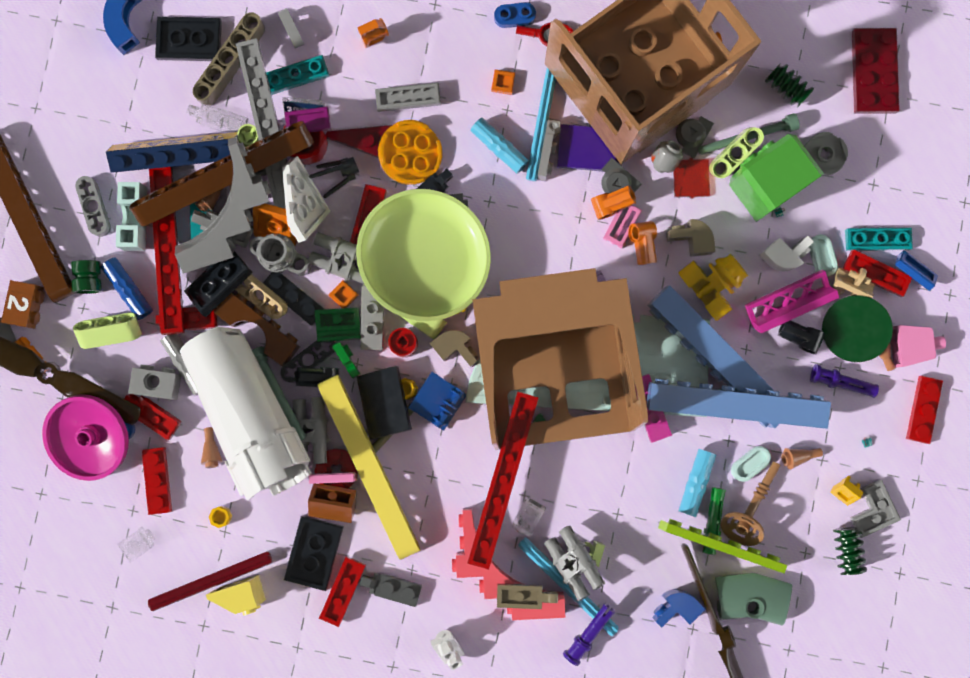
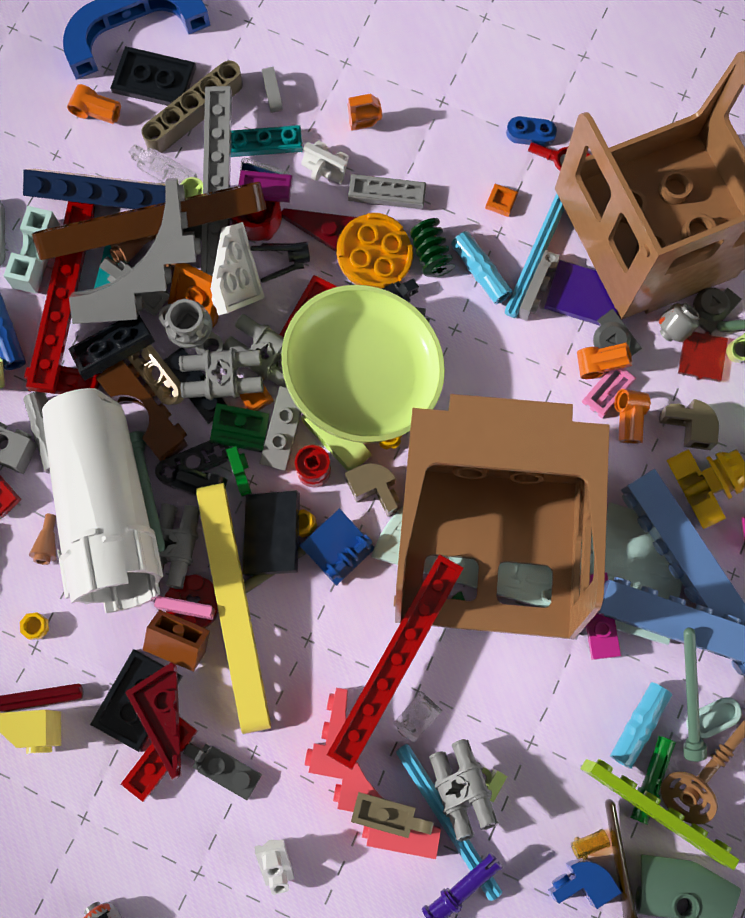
camera: 10 degrees right, 10 degrees down
(140, 76) = (87, 103): none -> orange piece
(303, 279) = (212, 363): none -> light grey pin
(331, 557) = (158, 710): none -> dark red wing
(350, 85) = (324, 163): none -> white hips
(454, 140) = (429, 248): none -> dark green piece
(676, 578) = (590, 844): none -> clear yellow pin
(740, 489) = (694, 747): none -> sand green piece

